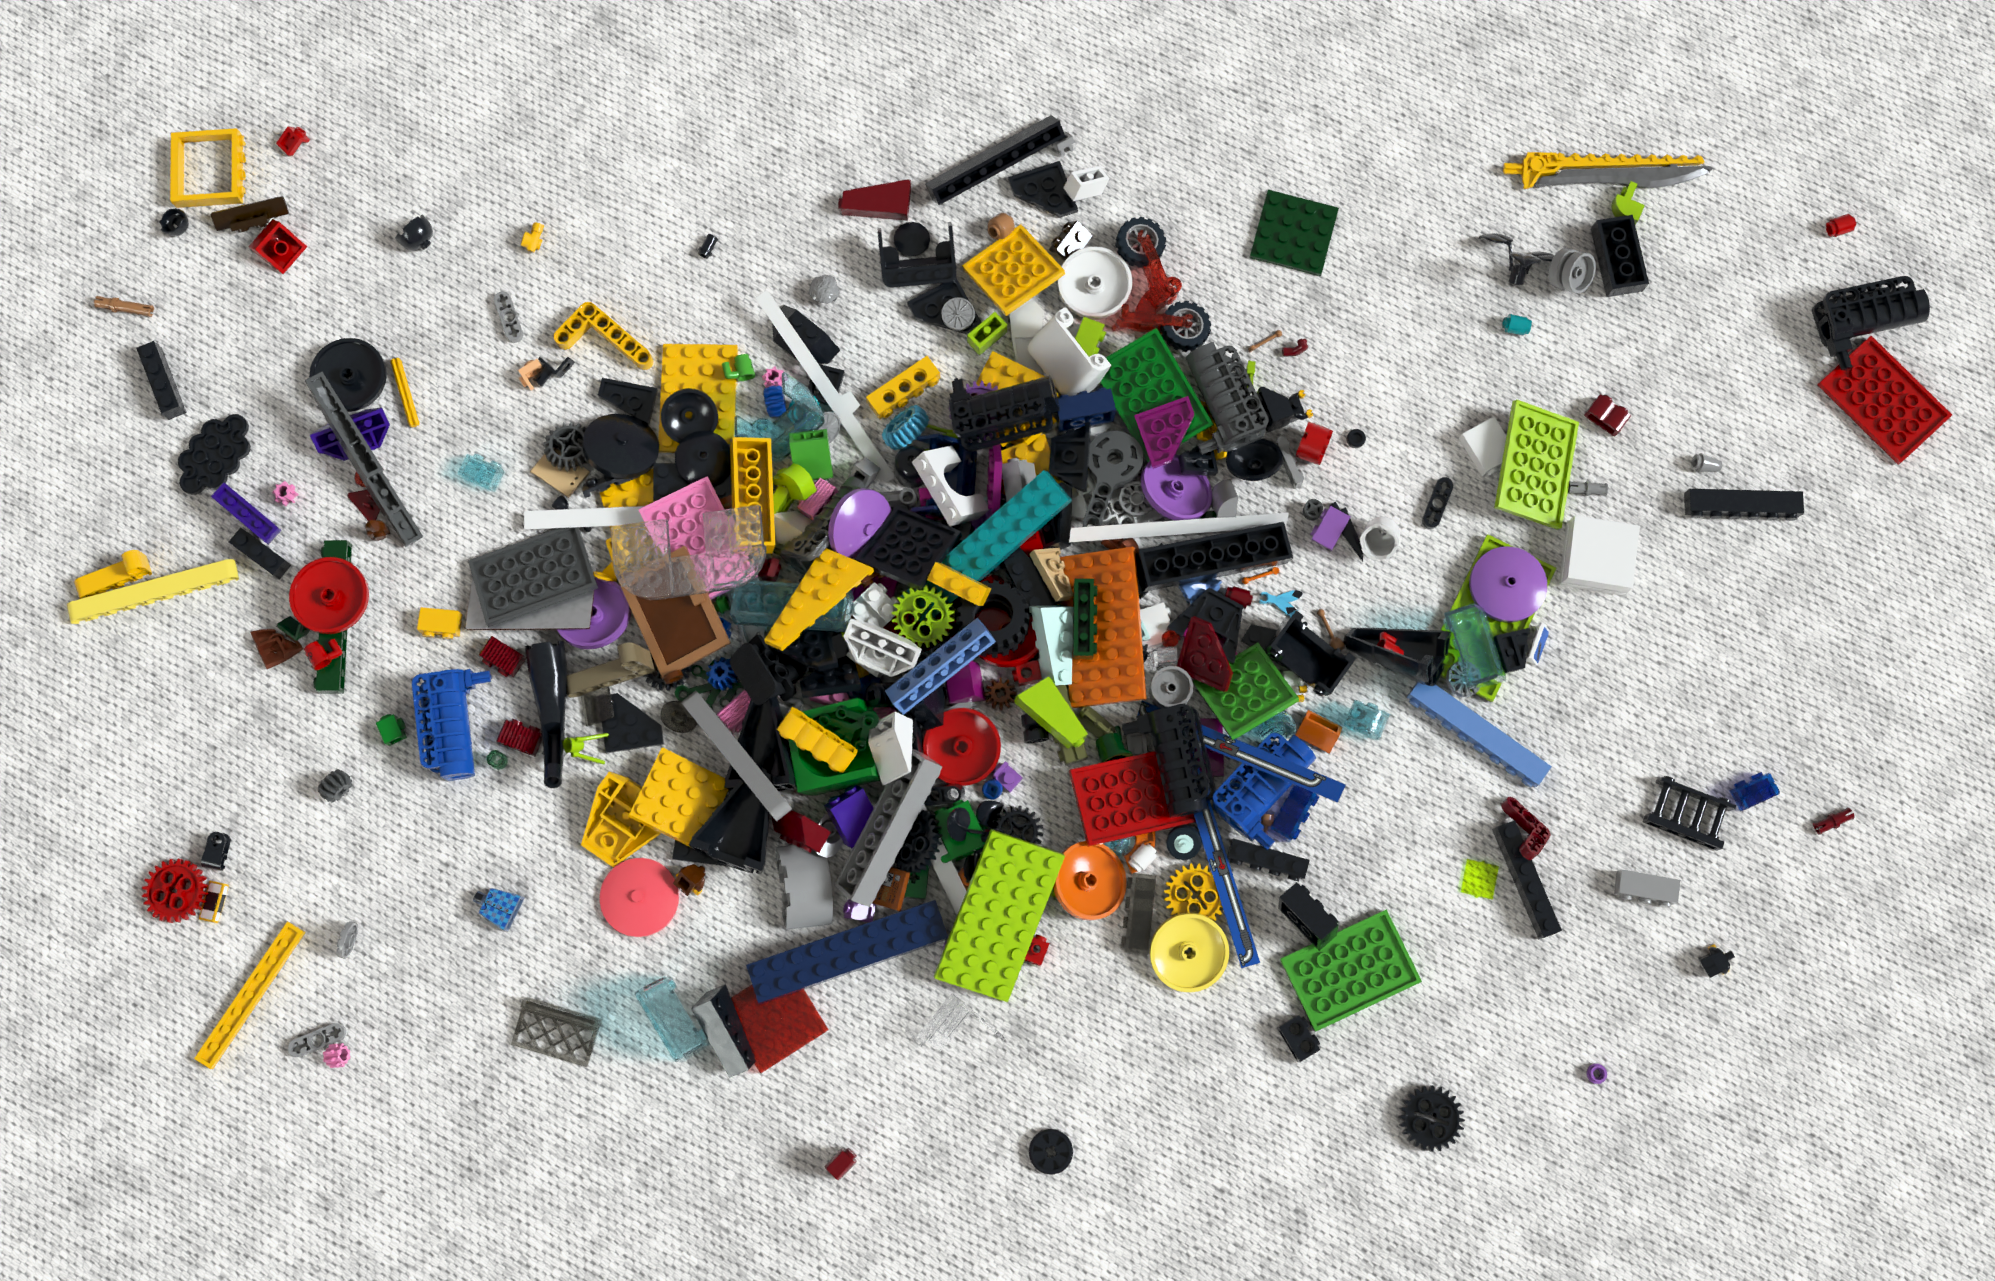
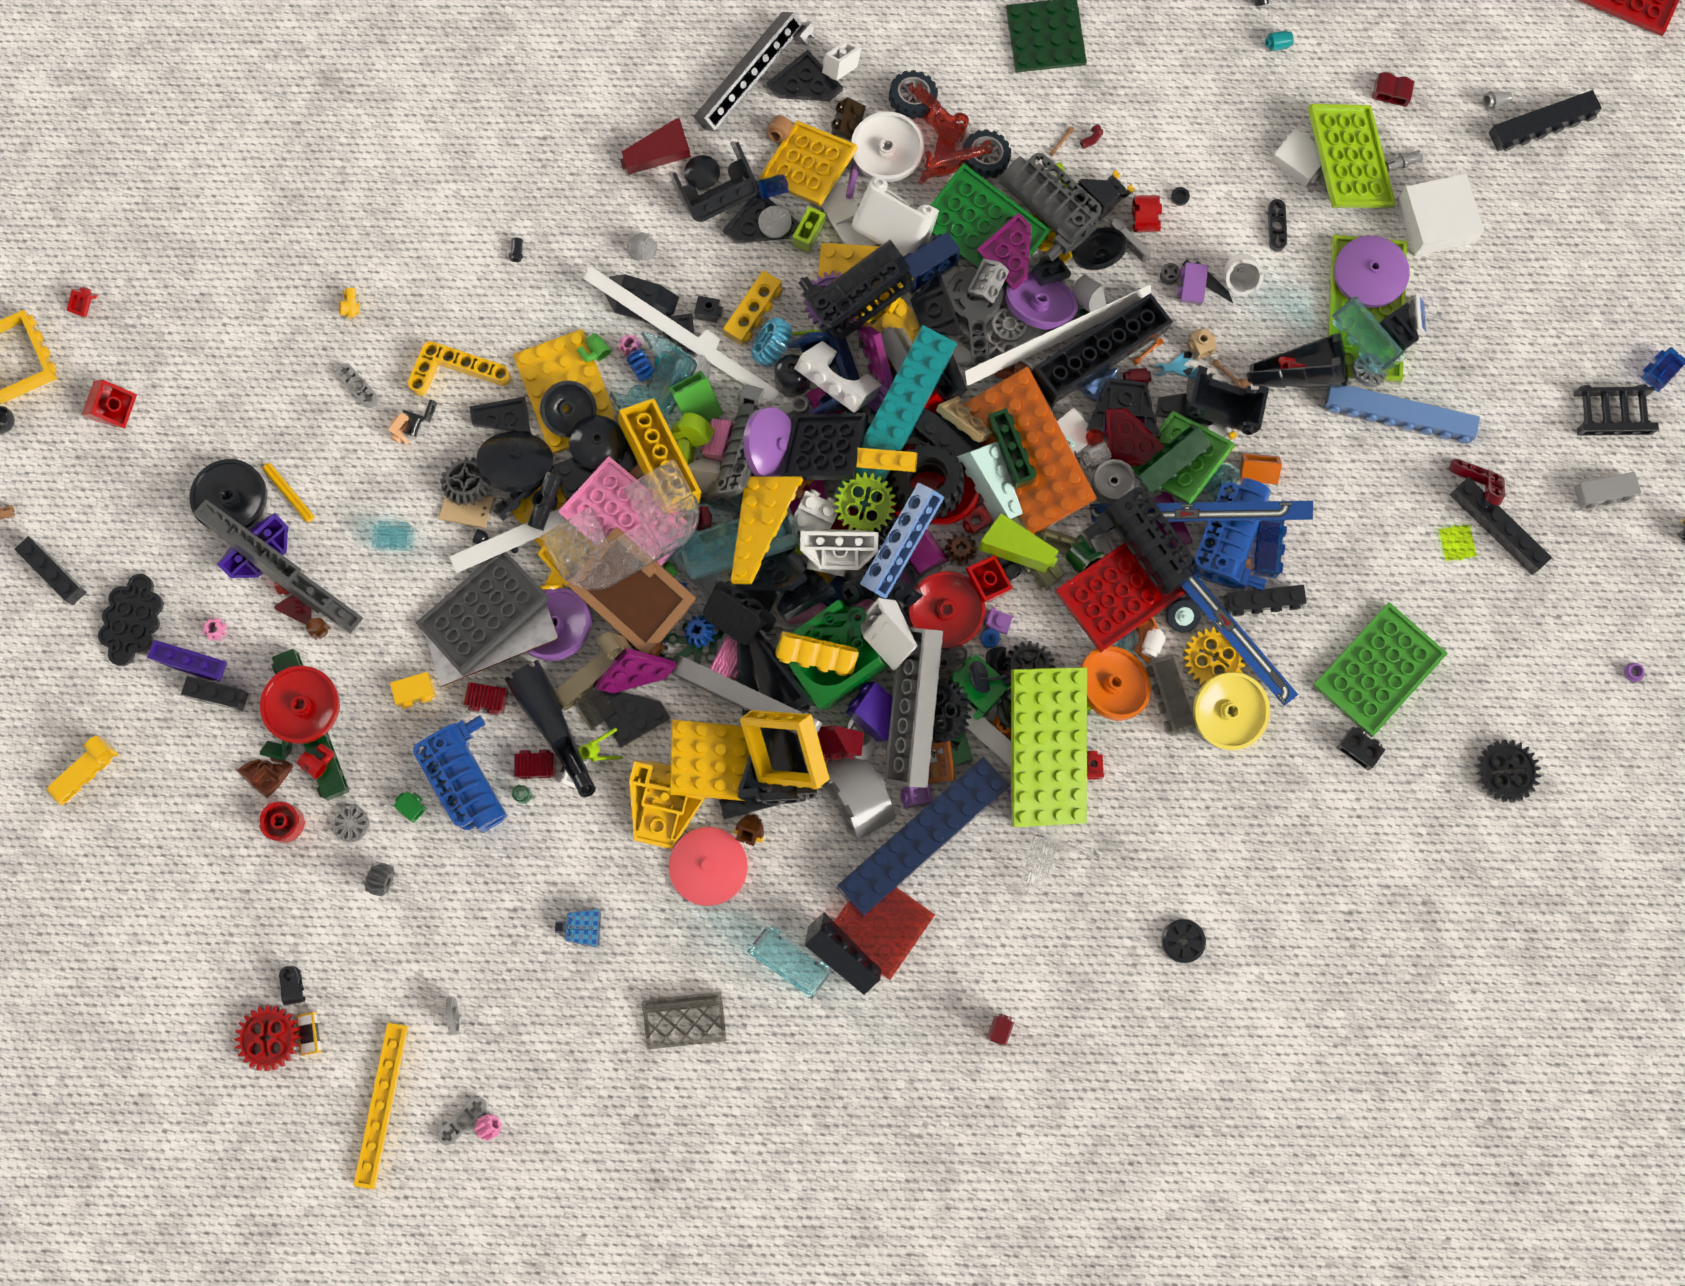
camera: 20 degrees left, 0 degrees up
(152, 590) = (126, 768): light yellow beam -> none
(249, 215) = (70, 385): dark brown bracket -> none
(260, 692) = (271, 825): none -> red brick
(332, 723) = (350, 823): none -> light grey wheel
(416, 234) = (237, 342): black cylinder -> none
(631, 494) = (545, 501): none -> black piece
(646, 686) = (634, 670): none -> magenta plate
(677, 717) = (674, 688): clear smoke dish -> none
(728, 784) = (809, 743): none -> yellow window
(861, 372) = (708, 309): none -> black brick
(969, 279) = (773, 186): none -> clear blue brick
(1011, 734) = (989, 579): none -> red slope
(1046, 304) = (852, 181): none -> medium lavender bar
(1089, 335) = (905, 192): lime brick -> none
(1131, 449) = (988, 280): none -> light grey bracket
(1233, 689) = (1172, 458): none -> dark green brick
(1308, 915) = (1324, 634): black brick -> none
(1315, 594) = (1202, 343): none -> tan brick
(1366, 719) = (1299, 440): clear light blue brick -> none

